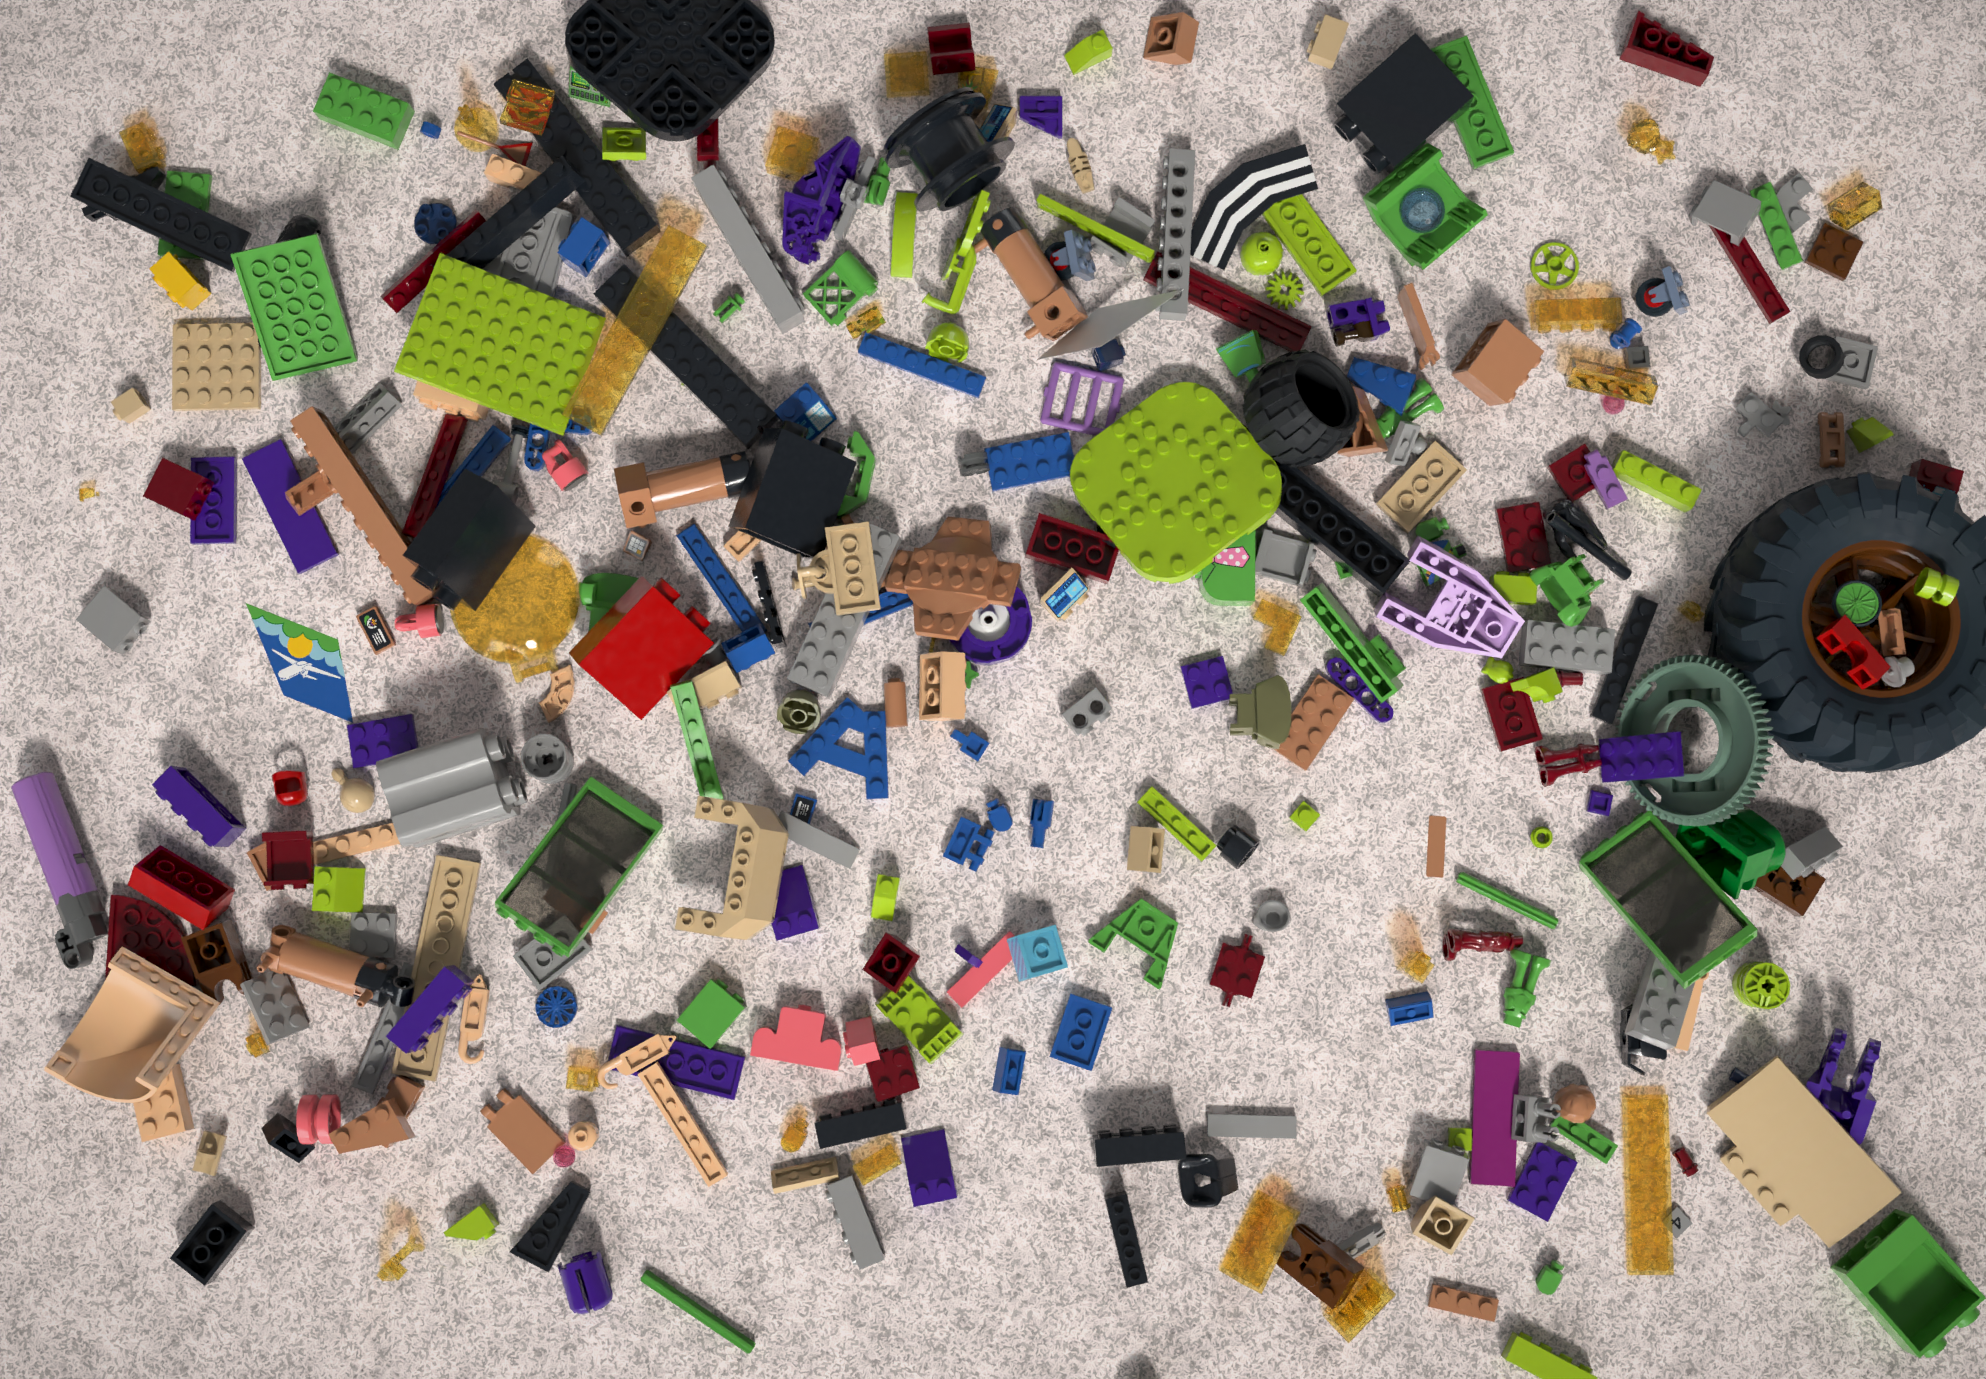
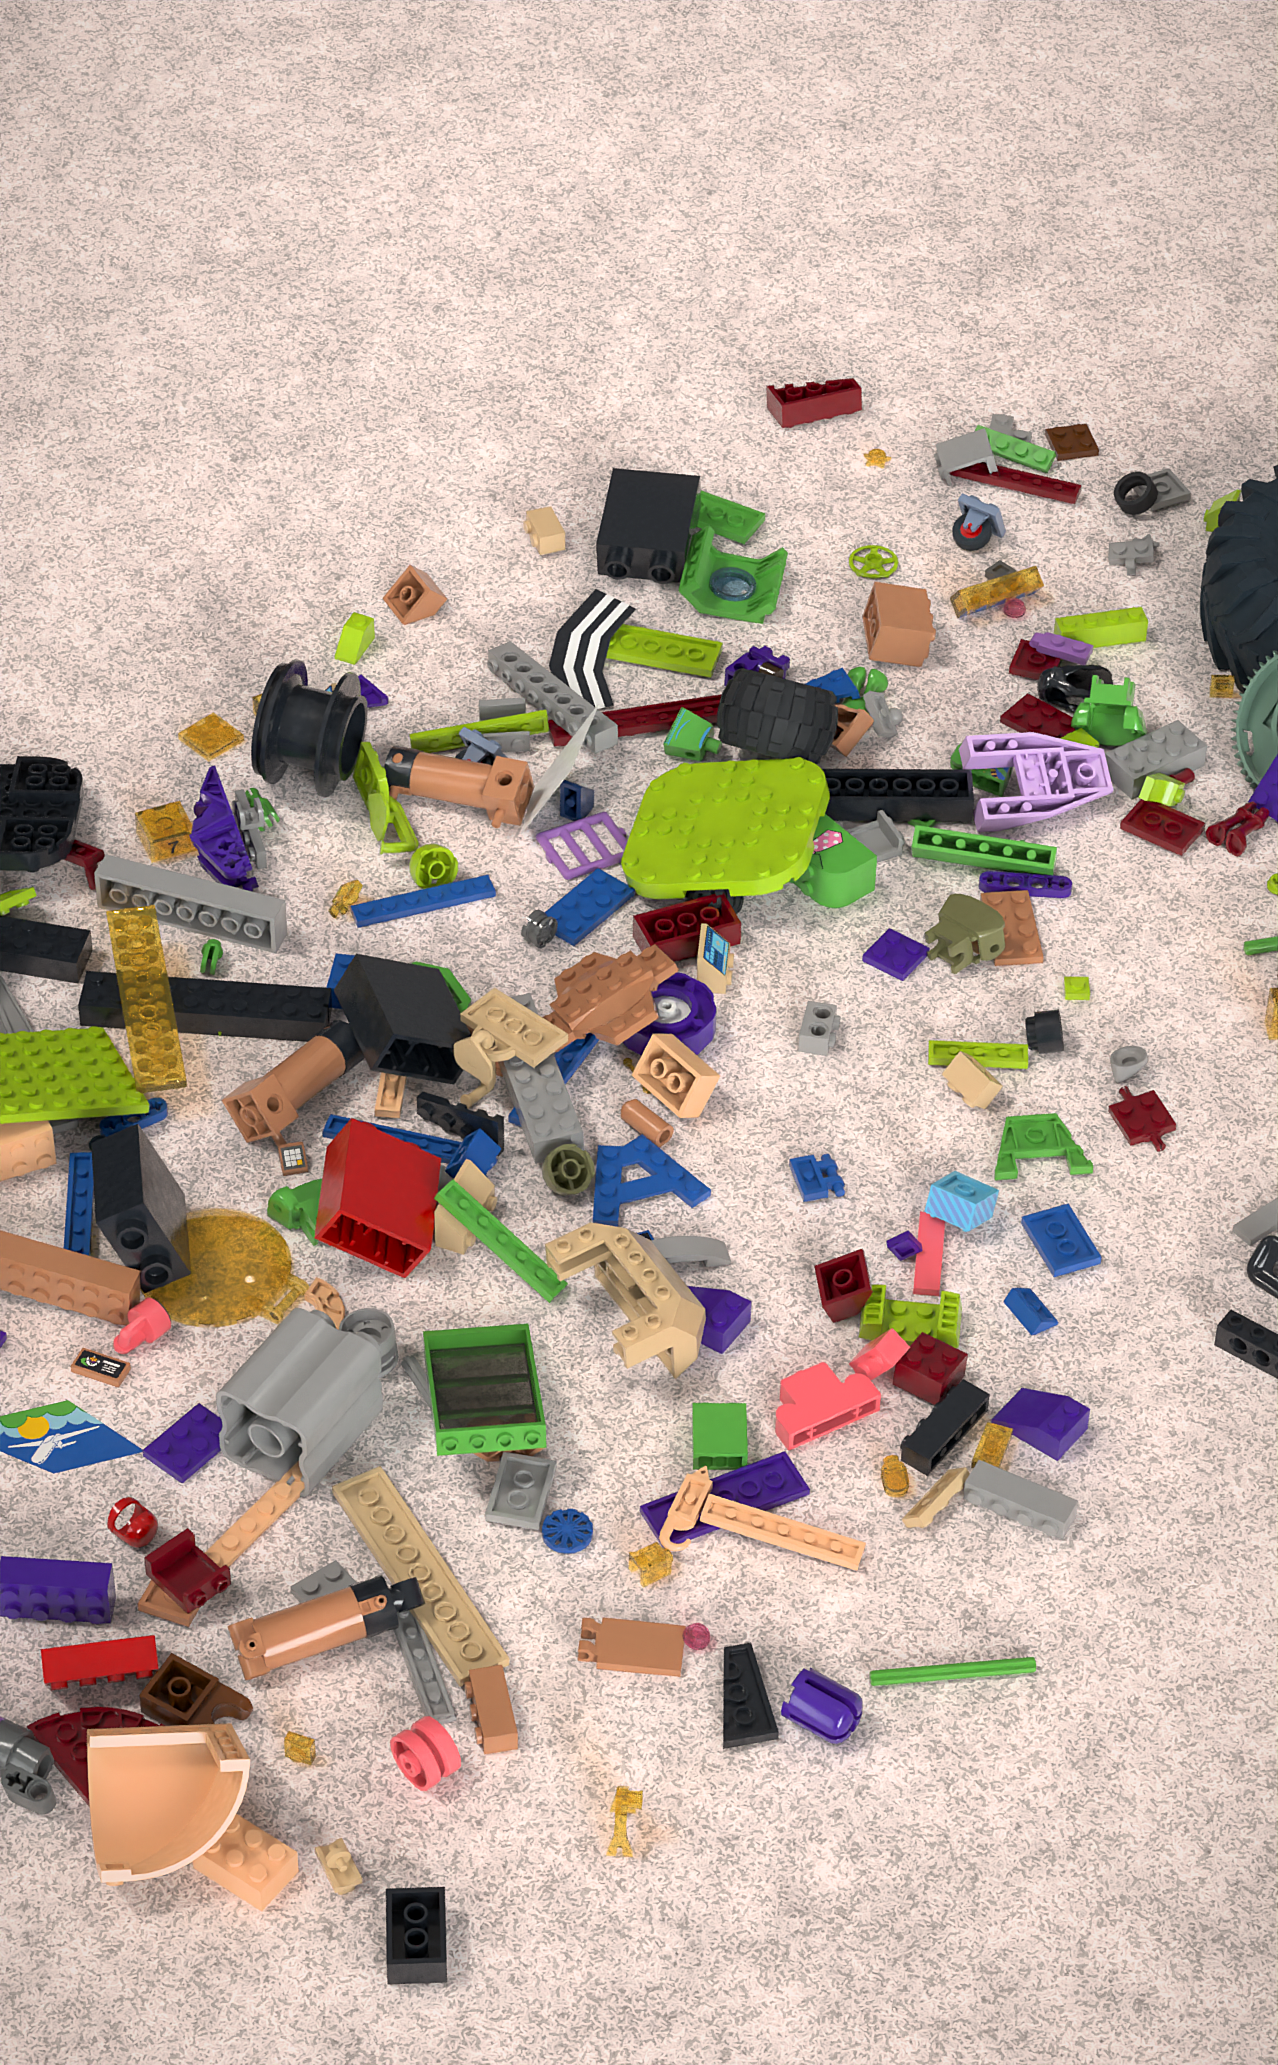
camera: 40 degrees left, 40 degrees down
(274, 1006) = (288, 1698): light grey plate -> none
(282, 1135) = (406, 1802): black slope -> none
(338, 889) = (258, 1576): lime slope -> none
(355, 793) = (202, 1495): tan hair -> none
(373, 1128) = (490, 1711): nougat wedge -> none
(430, 1009) = (452, 1584): dark purple brick -> none
(435, 474) = (48, 1208): dark red plate -> none
(473, 1019) = (496, 1589): light nougat plate -> none
(474, 1225) = (666, 1746): lime slope -> none
(570, 473) = (174, 1140): coral piece -> none
(583, 246) = (35, 984): blue brick -> none
(583, 1135) = (698, 1602): light nougat head -> none
(854, 275) = (302, 877): bright green piece -> none
(885, 897) = (784, 1253): lime slope -> none
(903, 235) = (320, 829): lime slope -> none
(951, 48) = (234, 691): dark red panel -> none
(972, 745) = (743, 1109): blue plate -> none
(999, 815) = (821, 1141): blue arm -> none
(1040, 820) = (862, 1123): blue arm -> none
(1080, 166) = (422, 707): tan hinge -> none
(1138, 1147) = (1202, 1273): black brick -> none
(1264, 261) = (633, 676): lime cylinder -> none
(1276, 288) = (667, 689): lime gear -> none
(1282, 623) = (912, 879): clear yellow plate -> none
(1418, 326) = (808, 640): nougat tile -> none
(1421, 487) = (925, 736): tan plate -> none
(1436, 846) = (1204, 944): nougat sticker -> none
(1498, 670) = (1119, 806): lime animal -> none
(1564, 527) = (1064, 675): black piece -> none
(1576, 314) = (930, 568): clear yellow brick -> none
(1622, 337) = (975, 559): blue connector -> none
(1624, 659) = (1216, 759): black plate -> none
(1644, 136) = (852, 453): clear yellow hair -> none
(1831, 439) = (1194, 532): nougat plate -> none
(1855, 206) = (1055, 404): clear yellow brick -> none

